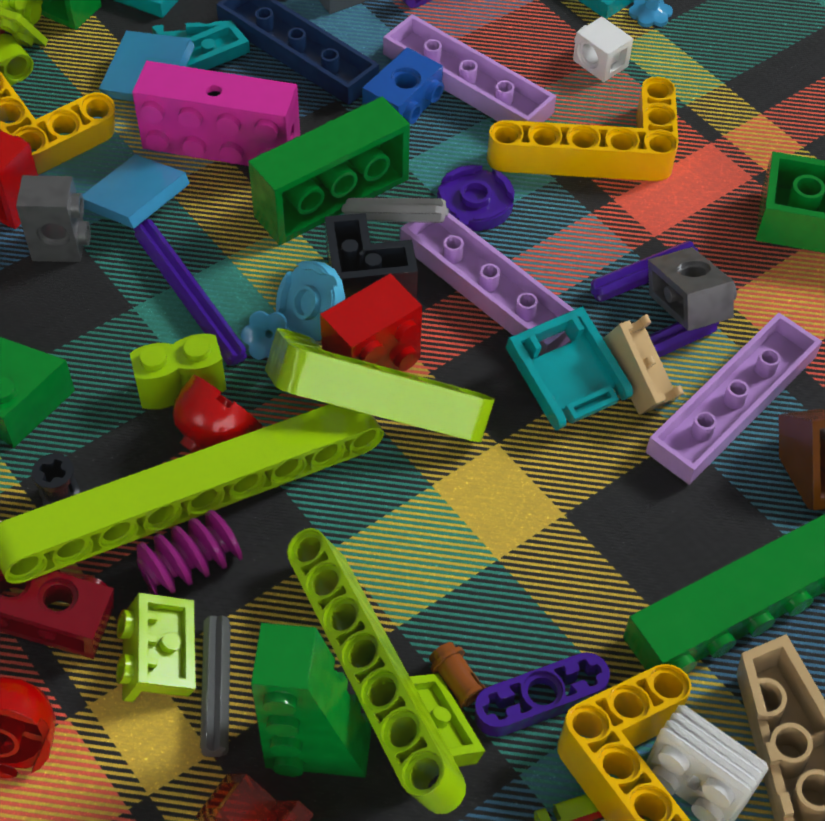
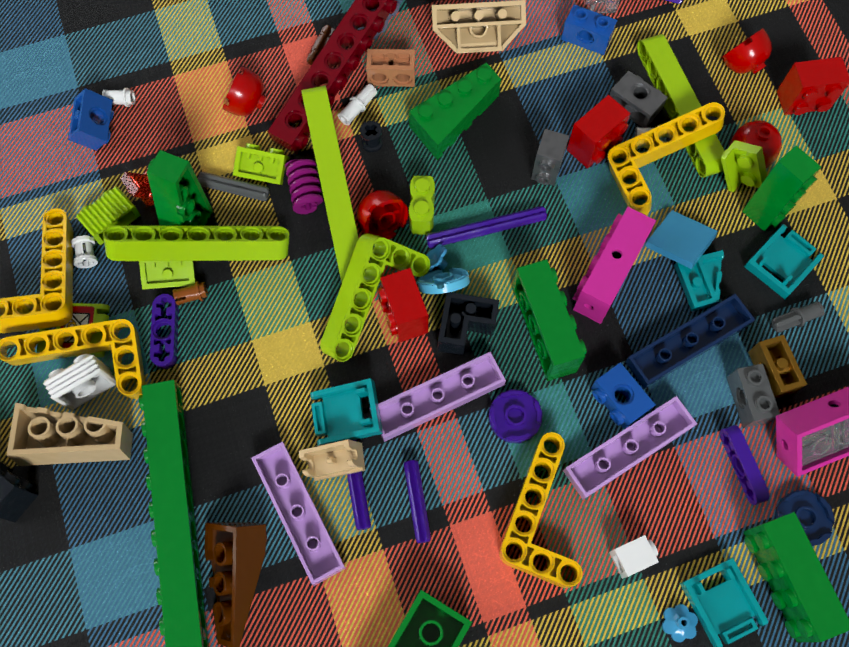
camera: 110 degrees right, 15 degrees up
(135, 190) = (571, 211): dark azure tile -> none
(398, 209) = (504, 352): light grey axle -> none
(691, 288) = (397, 513): flat silver brick -> none

